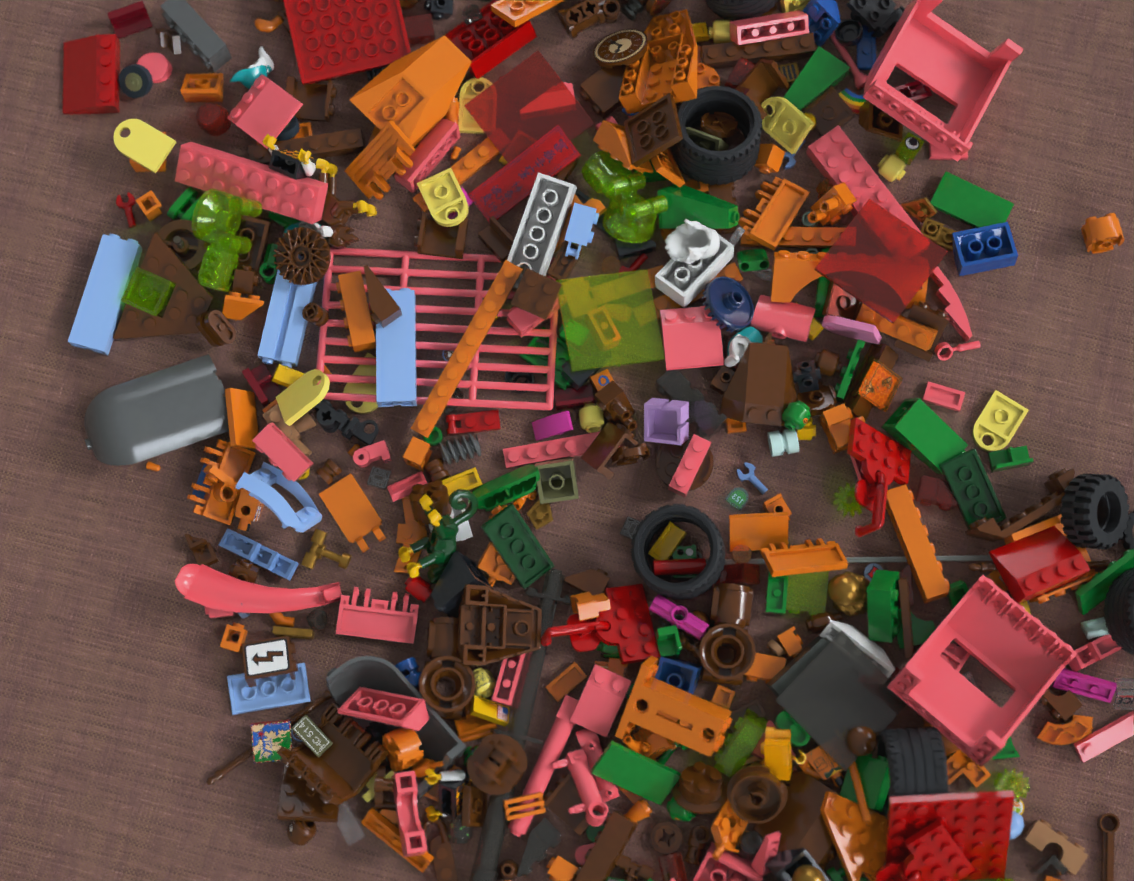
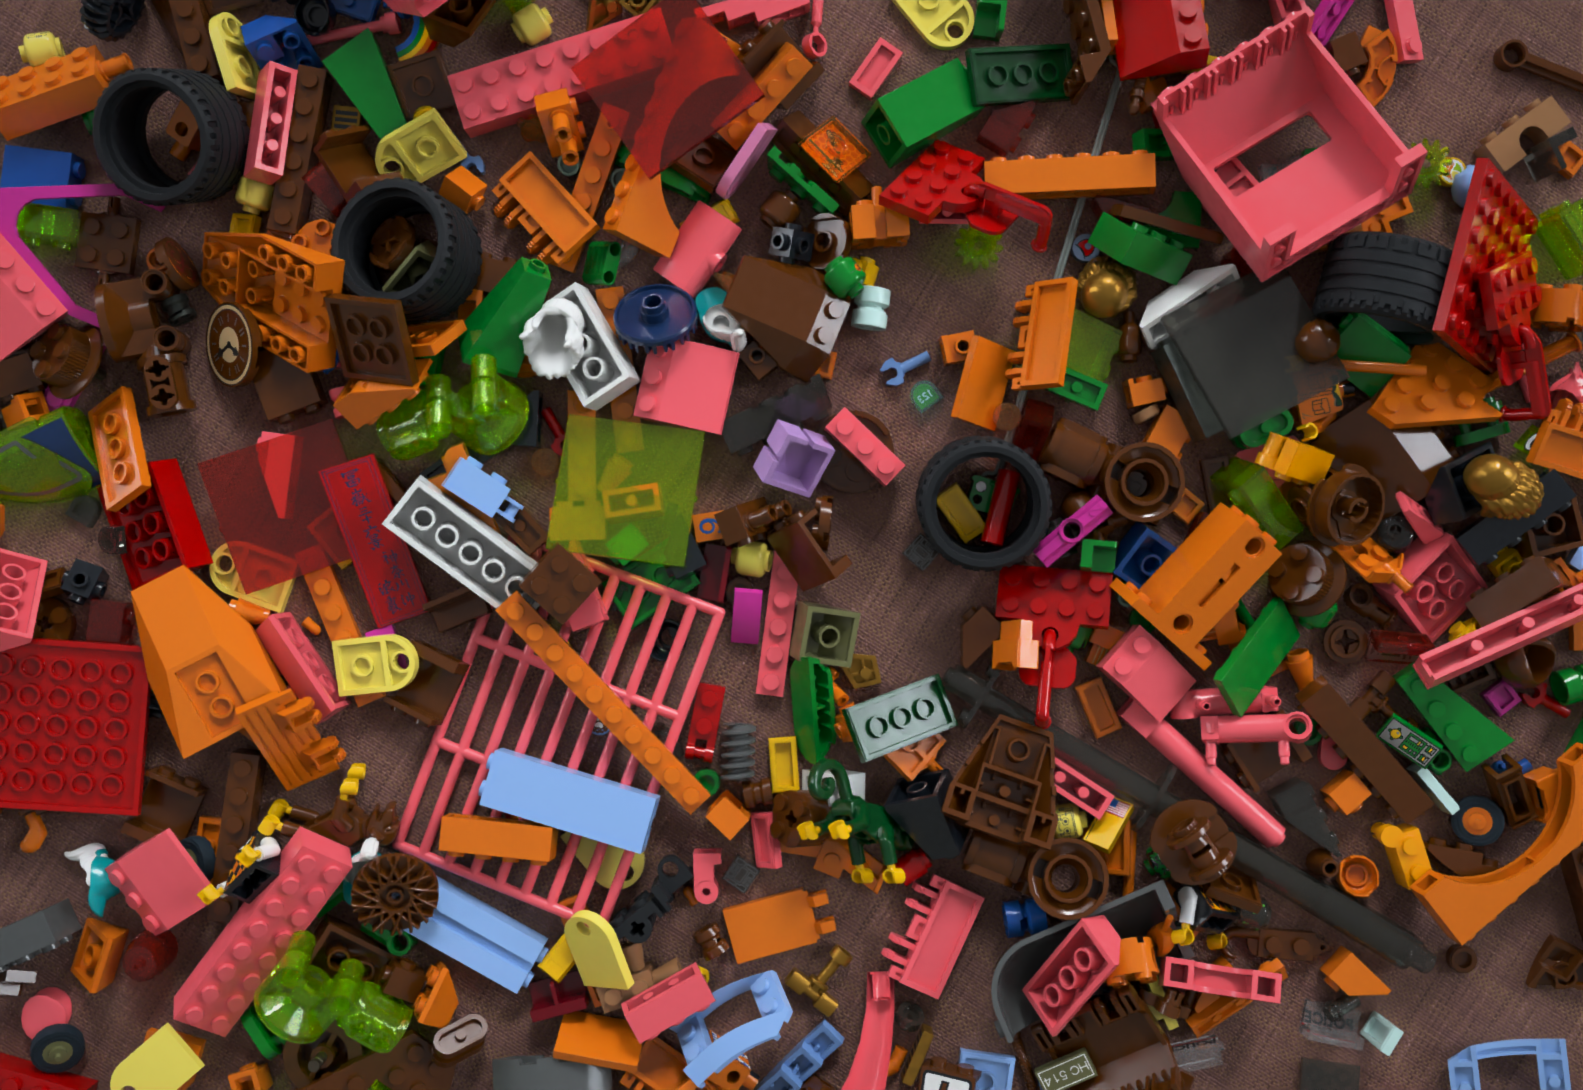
camera: 75 degrees left, 10 degrees up
(315, 314) = (484, 896): reddish brown wheel -> none
(382, 305) = (496, 806): reddish brown slope -> none
(540, 803) = (1257, 820): orange tile -> none
(638, 746) = (1223, 644): orange arm -> none
(736, 236) = (563, 273): clear tile -> none

